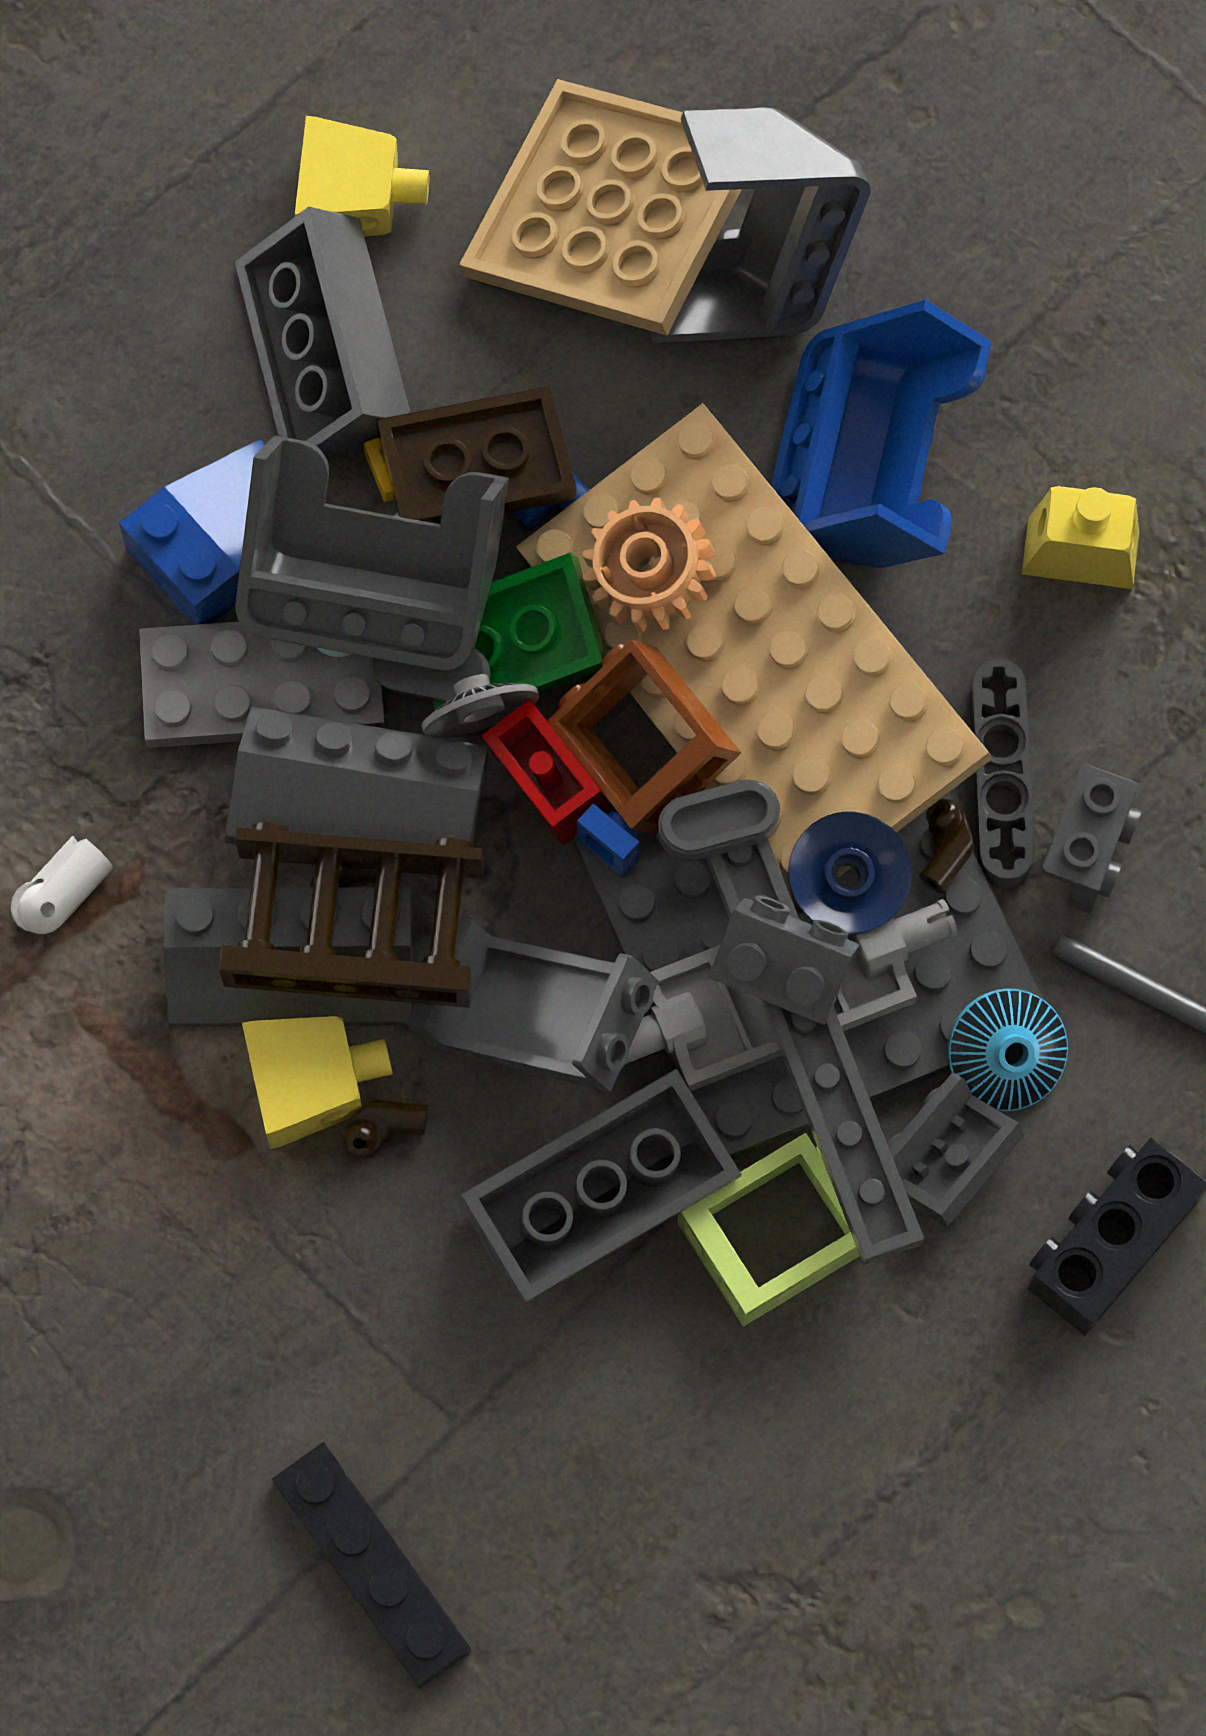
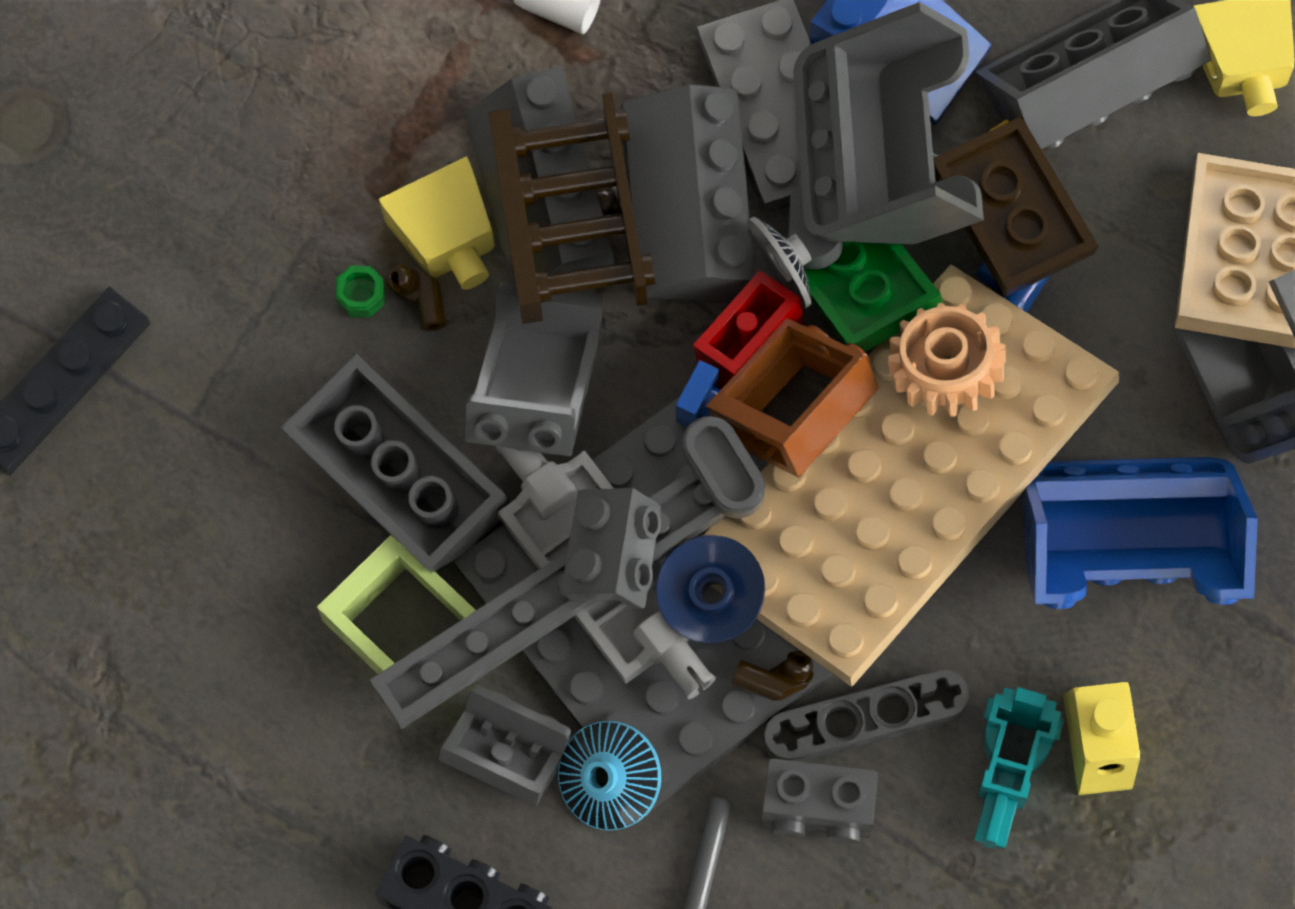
camera: 80 degrees right, 0 degrees up
(361, 1190) = (360, 291): none -> green tile
(1109, 653) = (1005, 781): none -> teal piece

